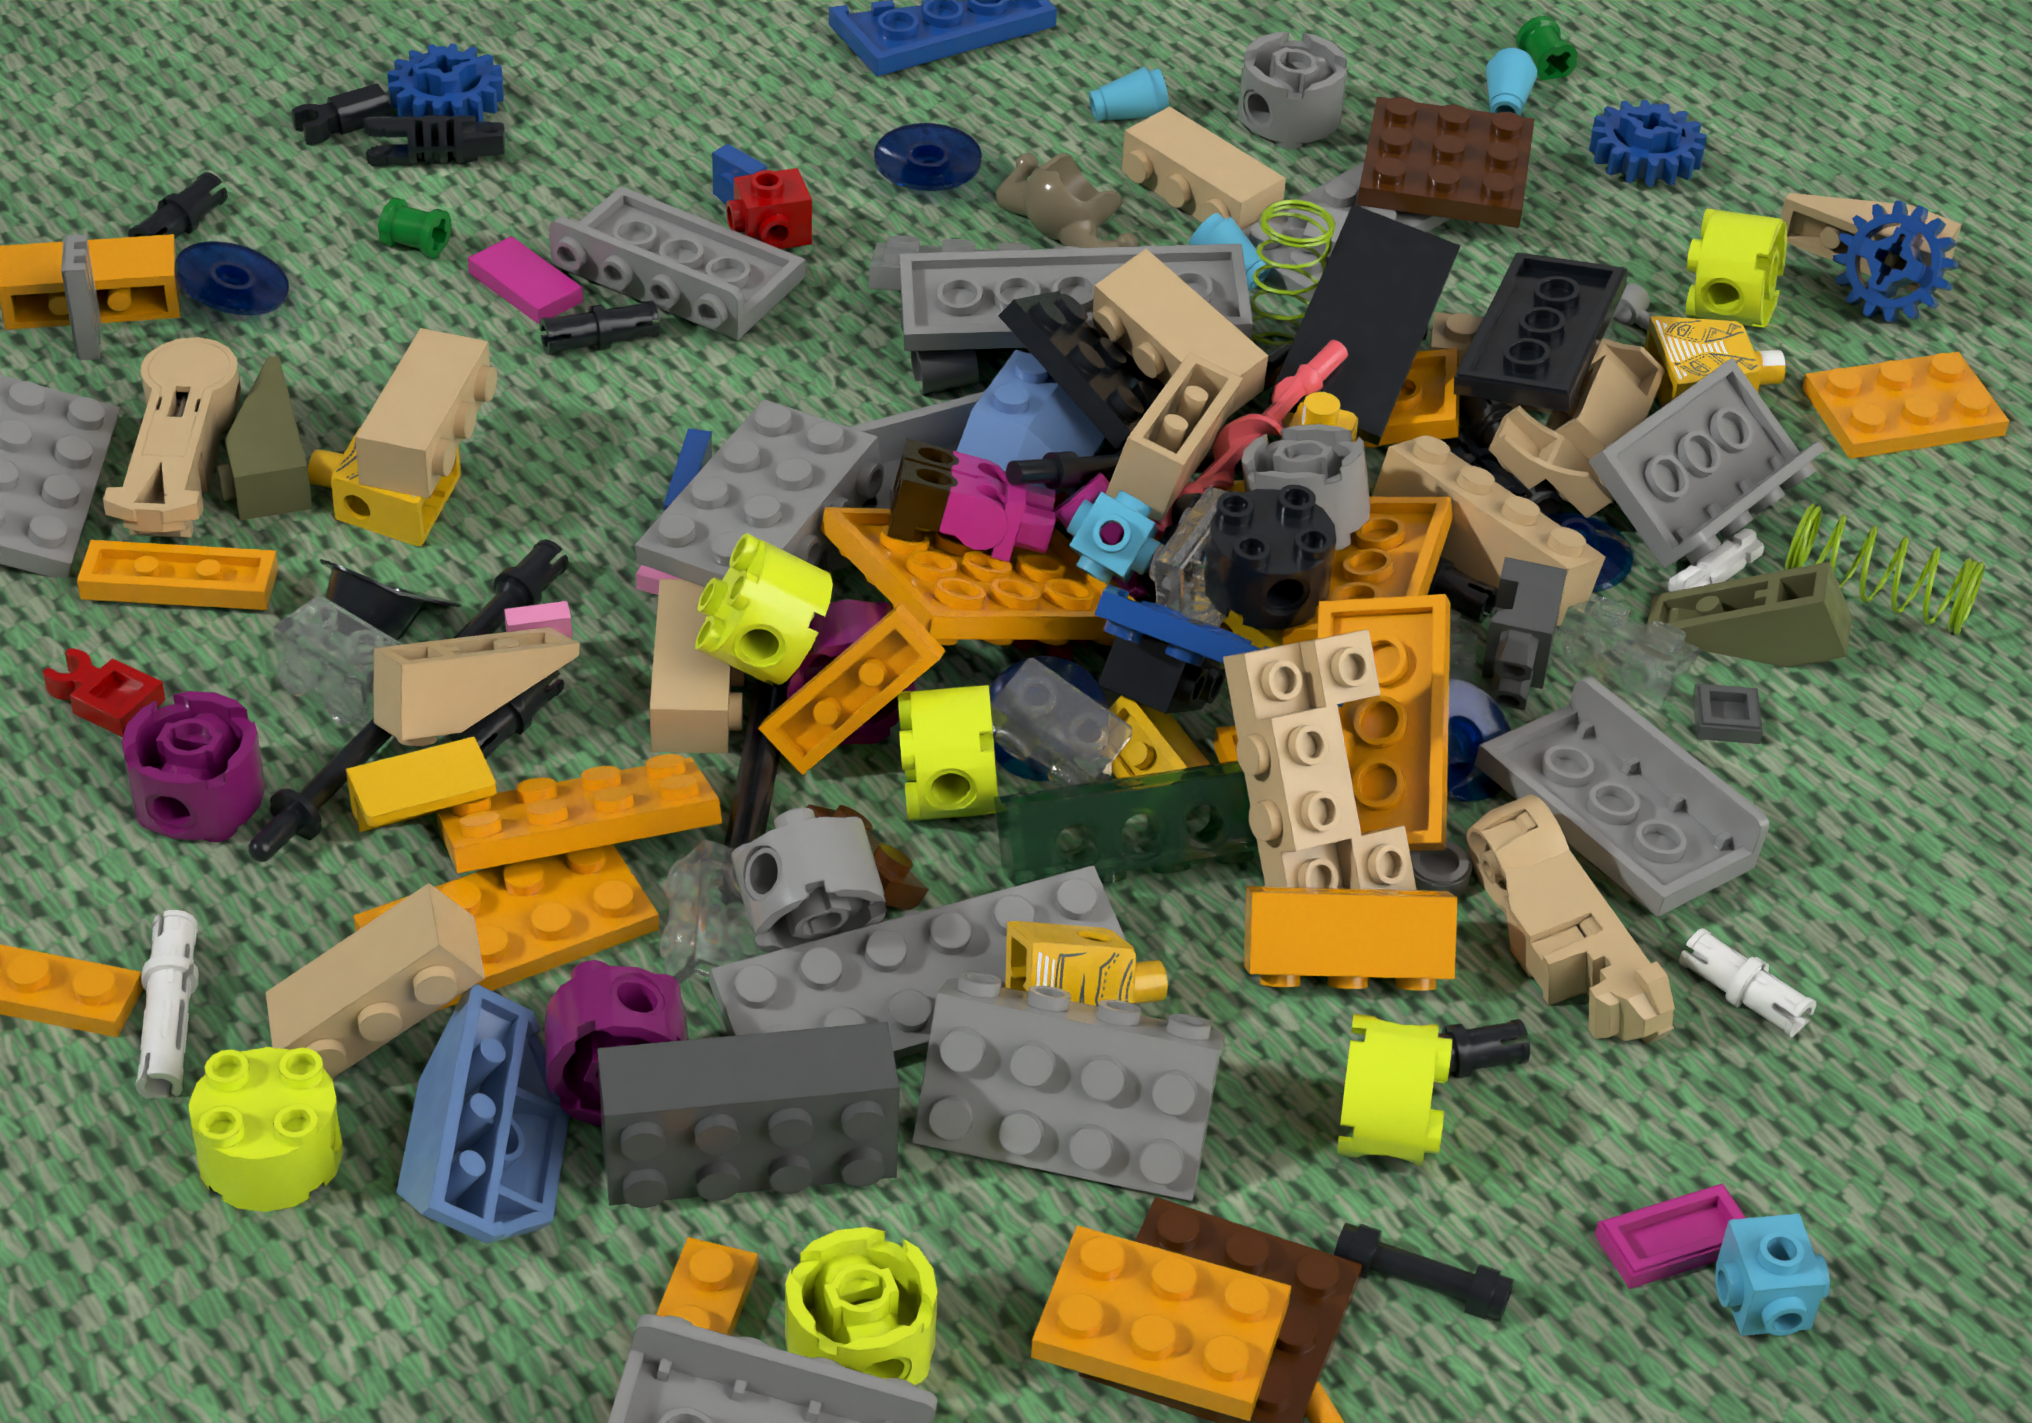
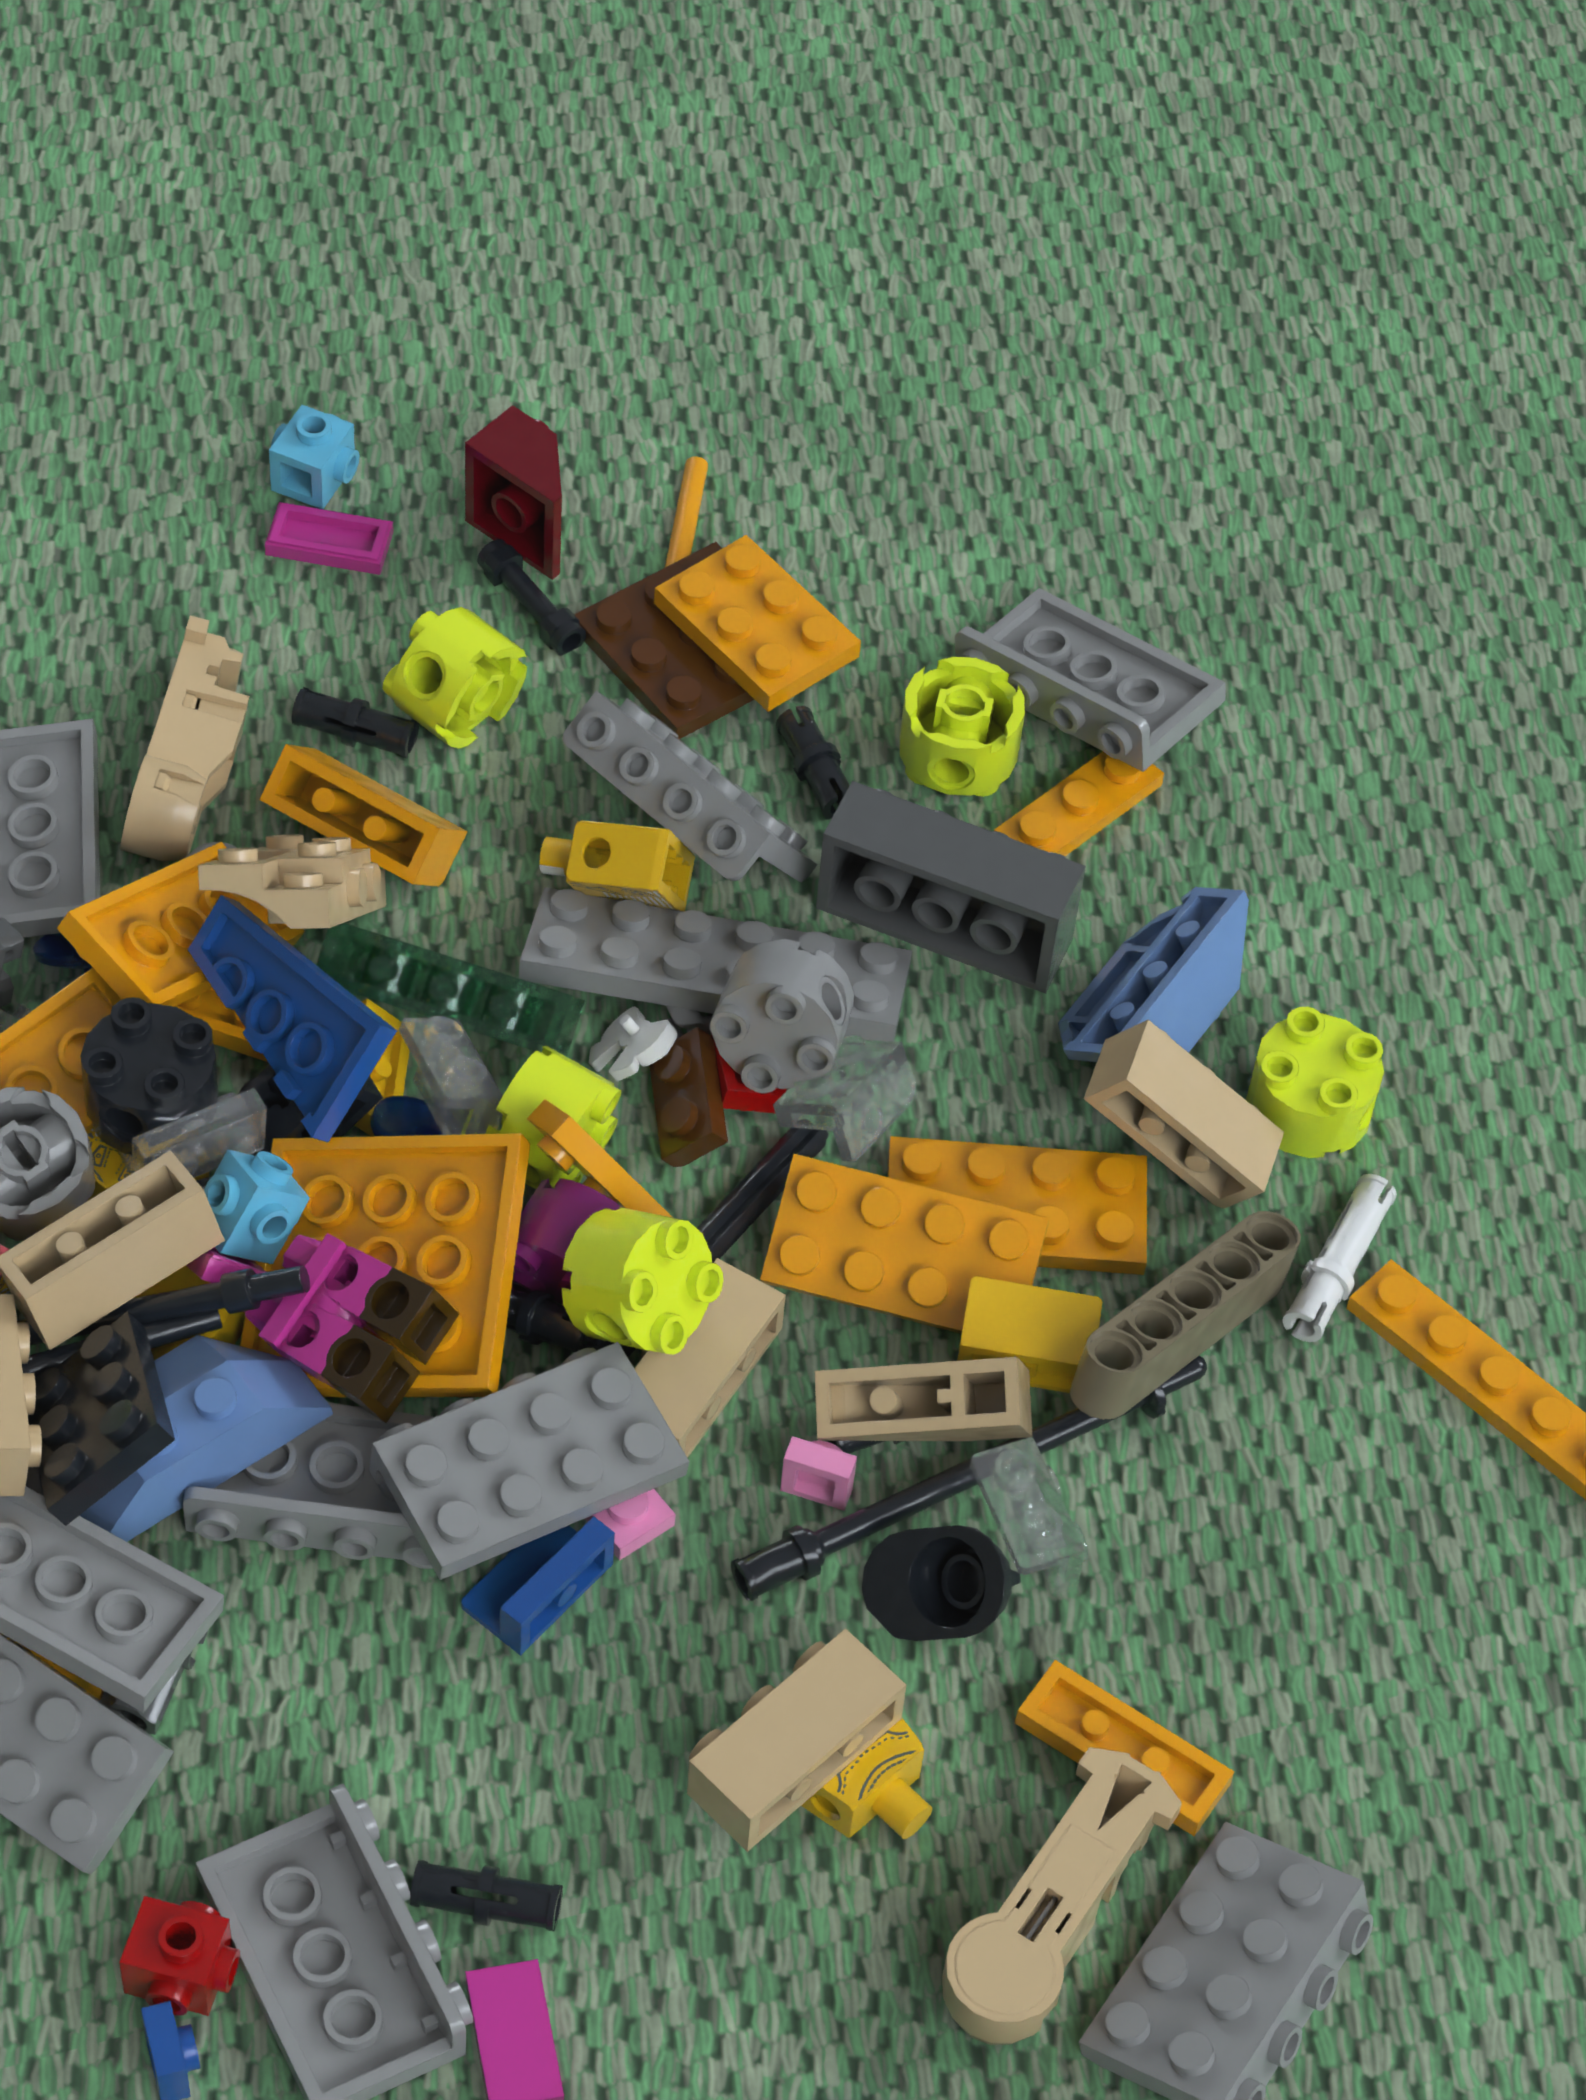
camera: 150 degrees left, 10 degrees up
(104, 694) = (1258, 1621): red plate -> none
(194, 766) = (1222, 1459): magenta brick -> none
(265, 451) = (957, 1874): olive slope -> none
(286, 863) = (1184, 1315): none -> dark tan beam
(602, 1010) = (1013, 993): magenta brick -> none
(949, 881) = (640, 1040): none -> white piece
(990, 1240) = (814, 758): none -> black pin
(1517, 1321) = (516, 487): none -> dark red slope
(1747, 982) = (82, 661): white pin -> none

